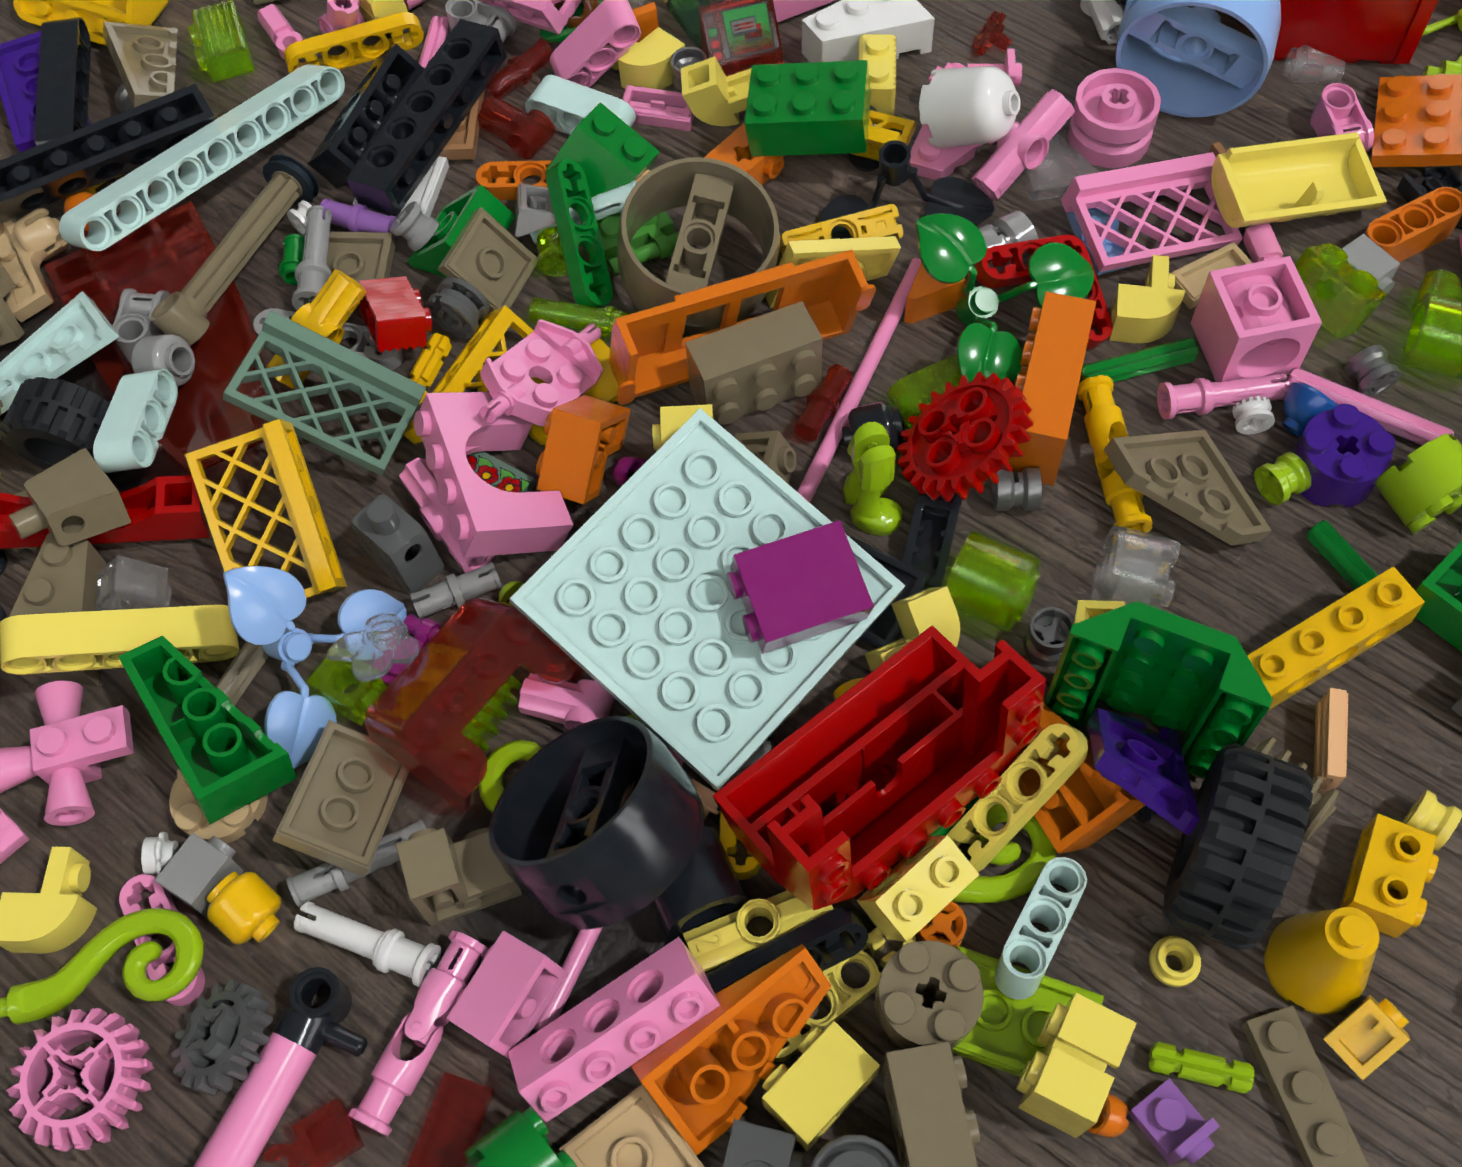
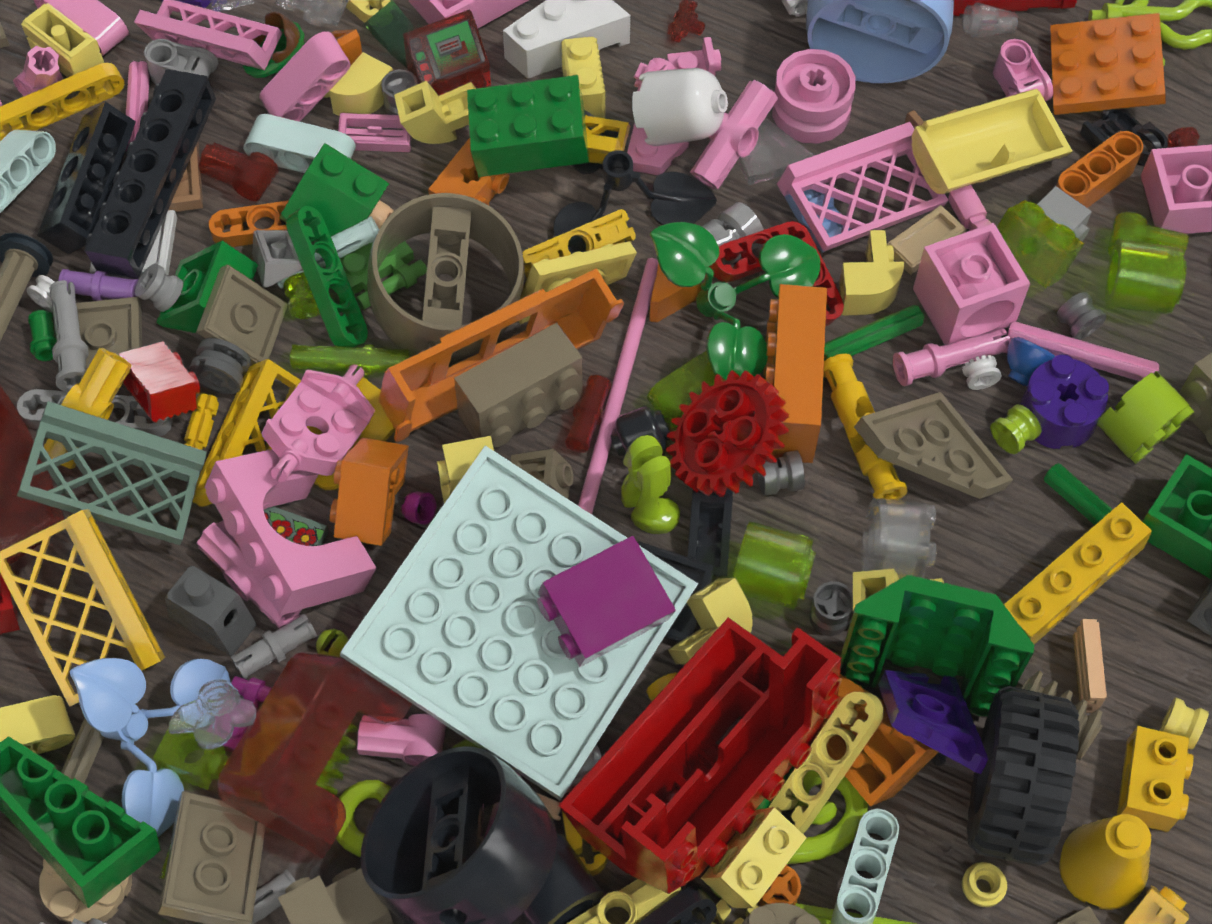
camera: 15 degrees left, 0 degrees up
(520, 69) = (230, 108): clear red pin -> none

